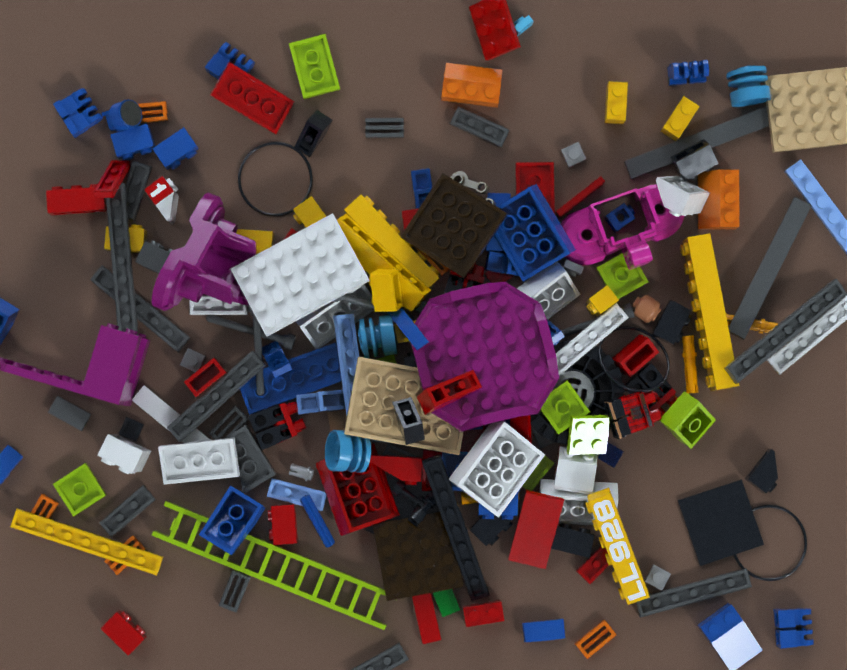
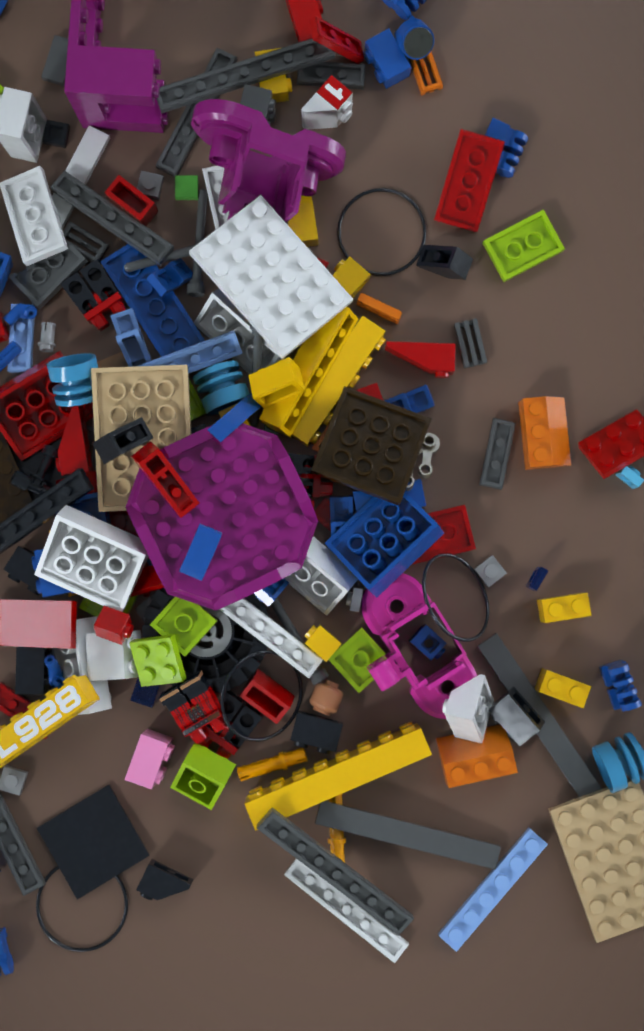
camera: 75 degrees right, 0 degrees up
(176, 149) = (389, 109): blue brick -> none
(202, 330) = (186, 187): none -> bright green tile
(276, 488) = (22, 311): none -> blue arm
(339, 195) = (379, 308): none -> orange tile
(389, 164) = (429, 357): none -> red slope
(512, 376) = (200, 552): none -> blue slope
(553, 463) = (113, 625): none -> red brick
(579, 522) = (55, 671): none -> blue arm
(580, 197) = (441, 590): red tile -> none
(583, 164) = (430, 610): none -> black piece
(588, 119) = (536, 578): none -> clear blue tile
(665, 460) = (149, 759): none -> bright pink brick

